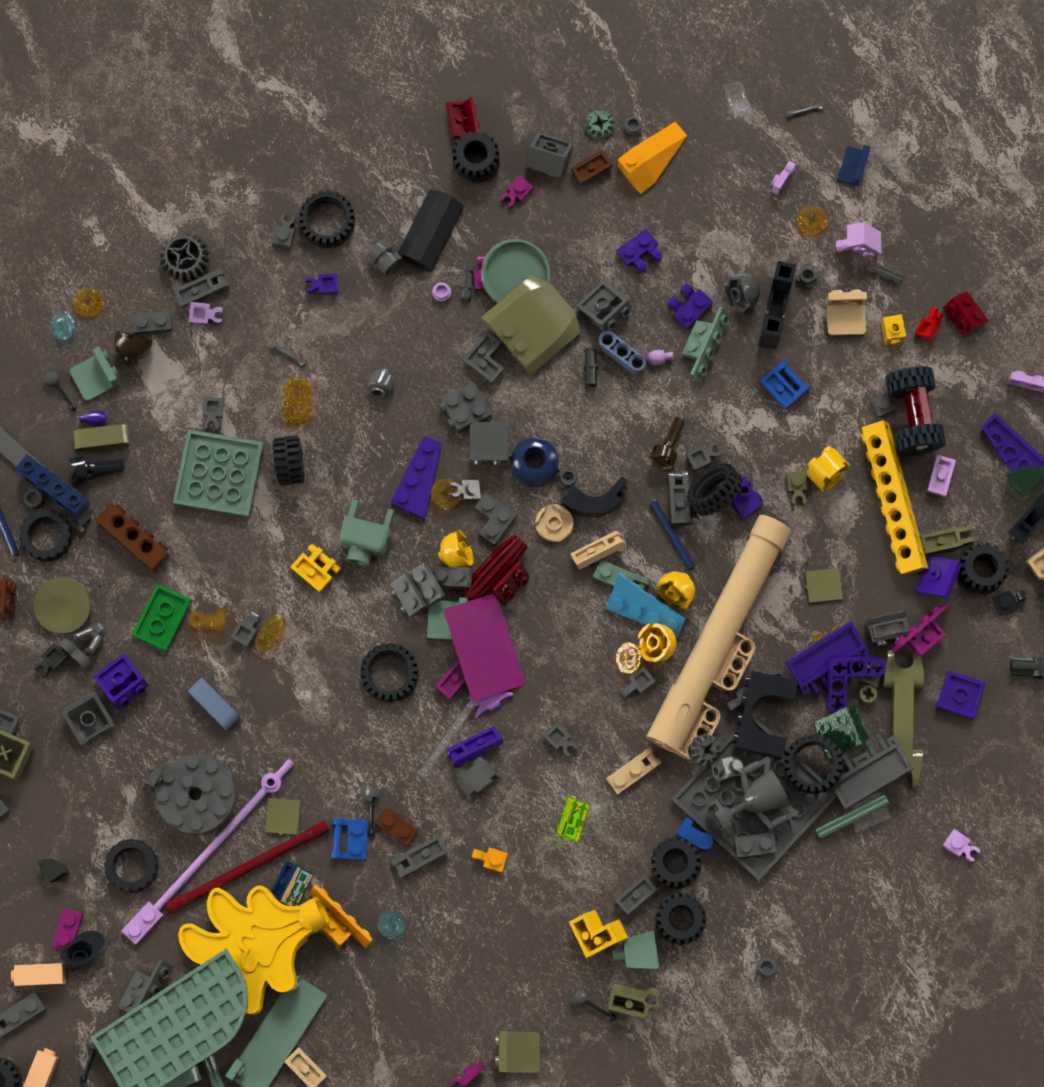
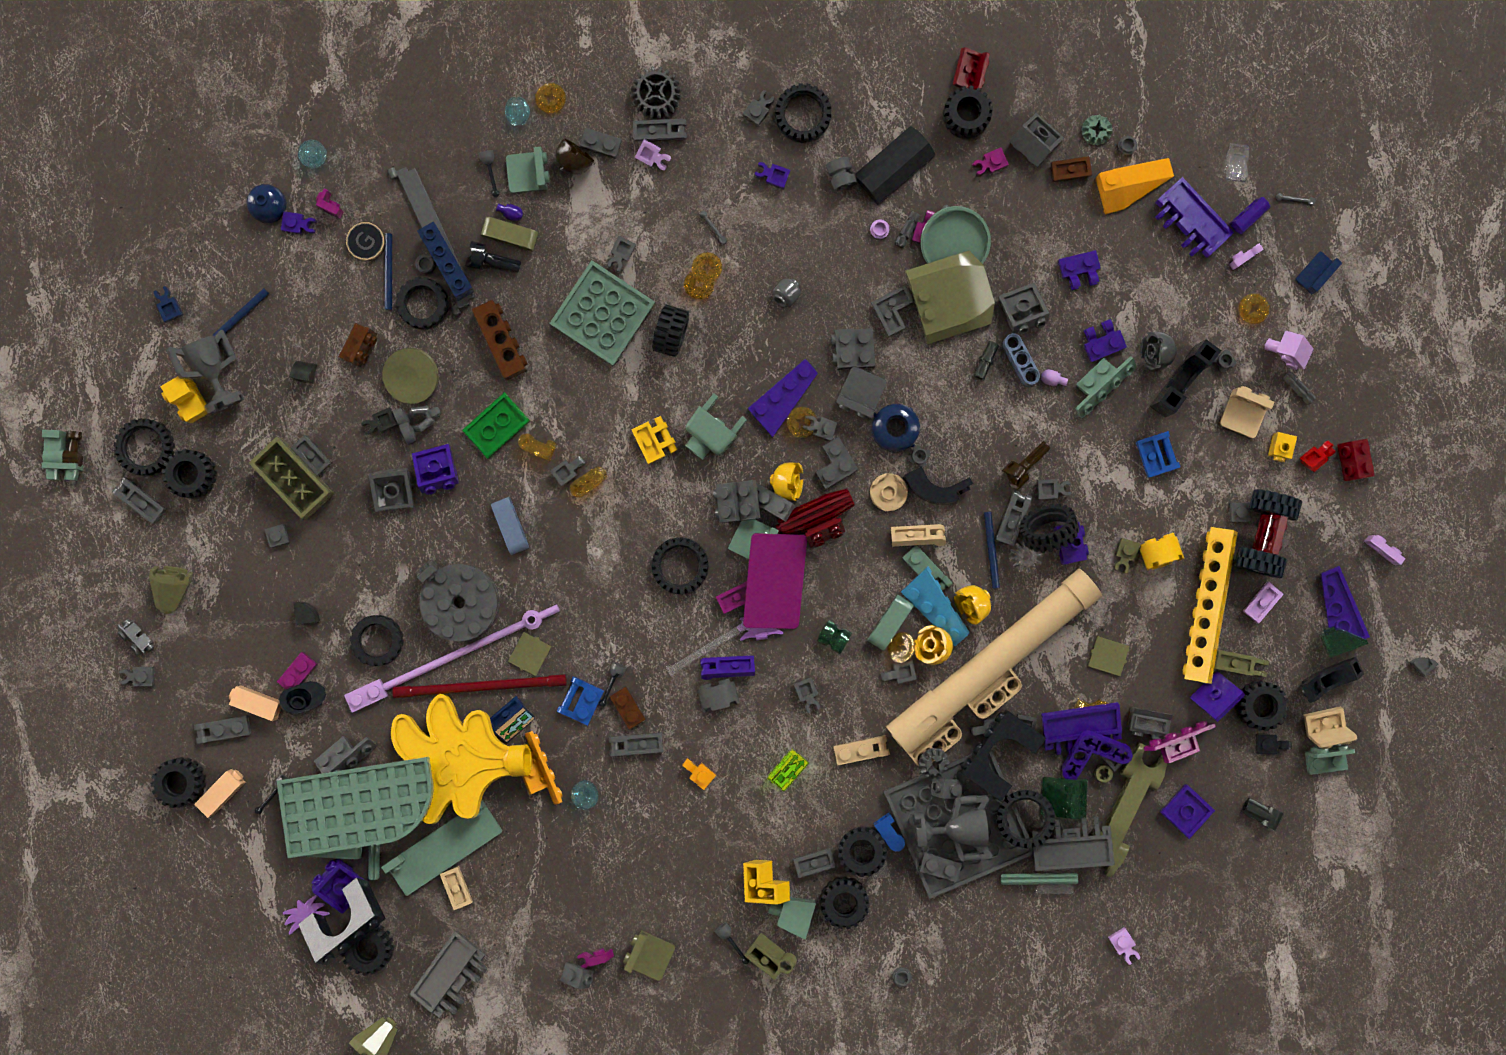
camera: 25 degrees right, 10 degrees up
(561, 675) = (834, 636): none -> clear green wheel
(608, 640) = (890, 622): none -> sand green beam
(721, 162) = (1194, 216): none -> dark purple hinge
(770, 140) = (1250, 215): none -> dark purple brick

